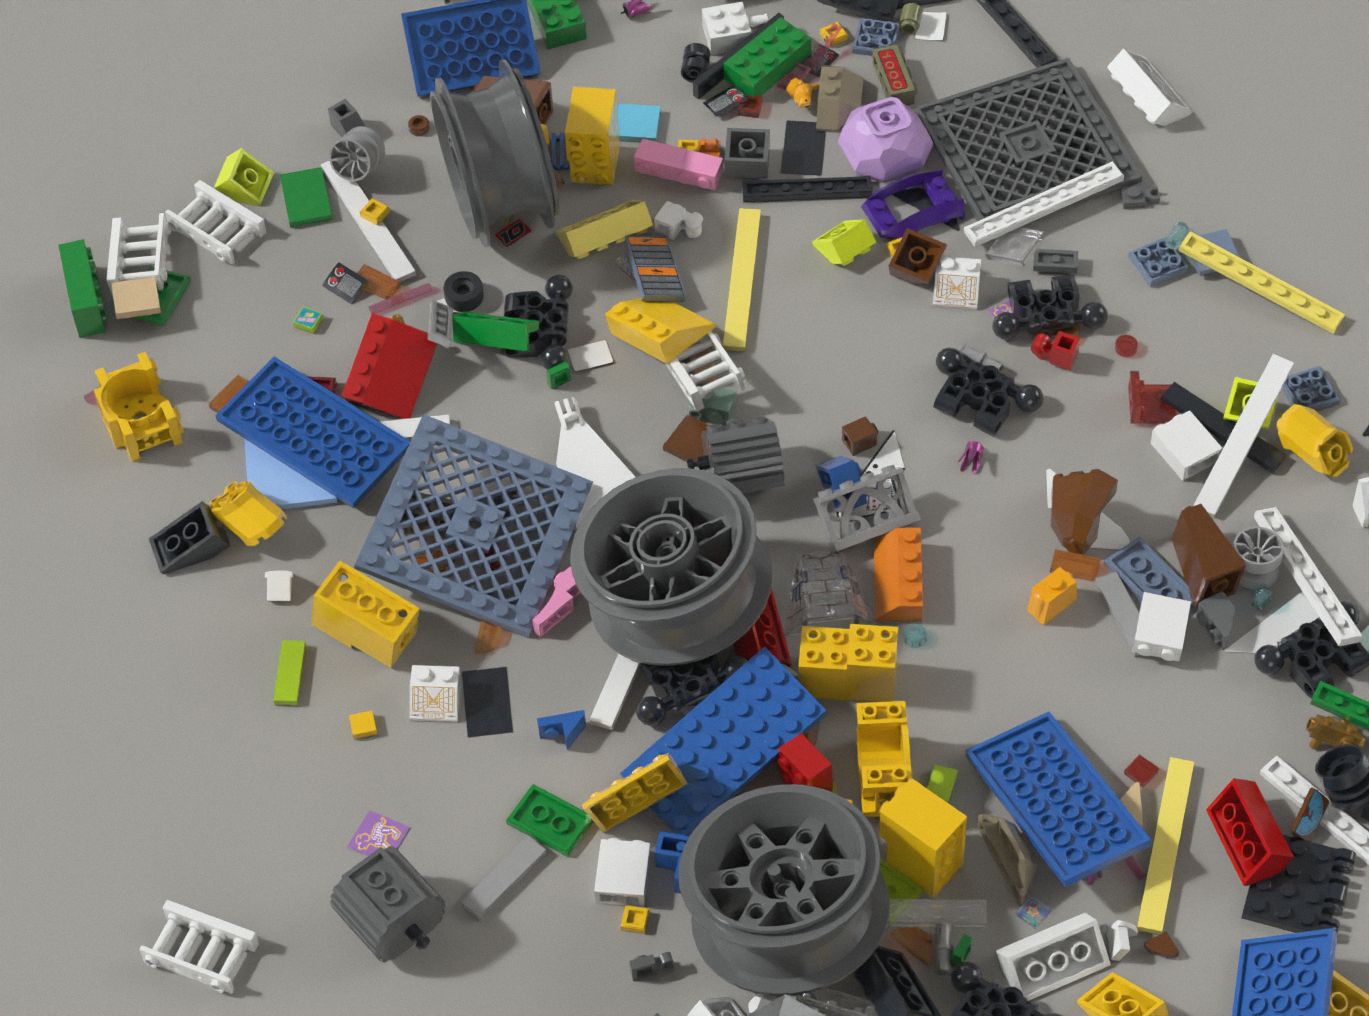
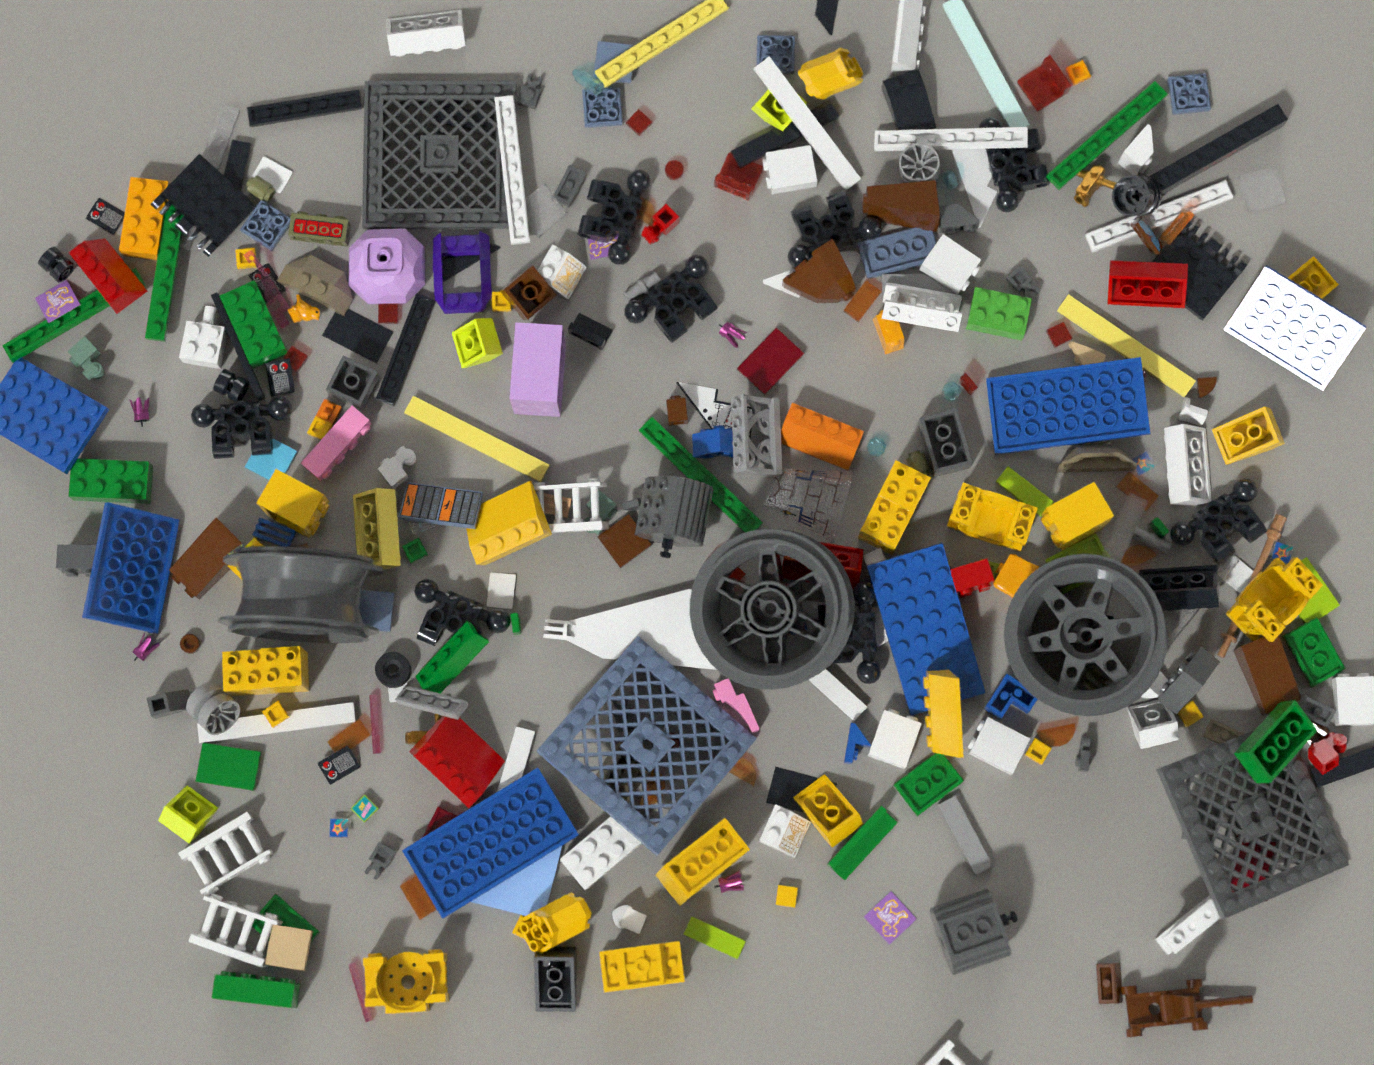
camera: 70 degrees left, 25 degrees up
(228, 602) = (641, 966): none -> yellow piece
(261, 349) = (381, 857): none -> dark grey plate
(279, 306) = (339, 827): none -> tile
(334, 528) = (599, 852): none -> white brick
(352, 659) = (729, 883): none -> flat silver piece
(395, 90) = (140, 651): none -> flat silver piece
(406, 175) = (265, 671): none -> yellow piece
(453, 775) = (862, 843): none -> green panel
(474, 729) = (828, 810): none -> yellow slope
(518, 253) = (377, 609): none -> sand blue tile
(585, 764) = (894, 738): none -> white brick
(598, 269) = (414, 550): none -> green tile
(660, 83) = (228, 418): none -> black connector
(662, 933) = (1057, 736): none -> clear orange tile
(799, 480) = (693, 469): none -> green plate
(835, 284) = (538, 369): none -> lavender piece
(837, 162) = (388, 313): none -> clear red tile
(908, 333) = (590, 331): none -> black panel
(914, 681) = (918, 462): none -> olive brick
(951, 693) = (945, 442): none -> dark grey brick
(960, 504) = (770, 361): none -> dark red tile
(998, 915) = (1133, 485): none -> clear orange tile
(1016, 684) = (951, 391): none -> clear light blue tile
(1033, 696) = (967, 383): none -> clear red tile
(1095, 611) = (922, 307): none -> white fence
(1131, 697) = (998, 313): none -> bright green brick
(1143, 510) = (839, 205): none -> black connector
(1160, 298) = (639, 122): none -> clear red tile
(1182, 708) = (1021, 280): none -> dark grey plate
(1330, 526) = (908, 101): none -> black slope
(1337, 841) = (1176, 226): none -> clear orange tile

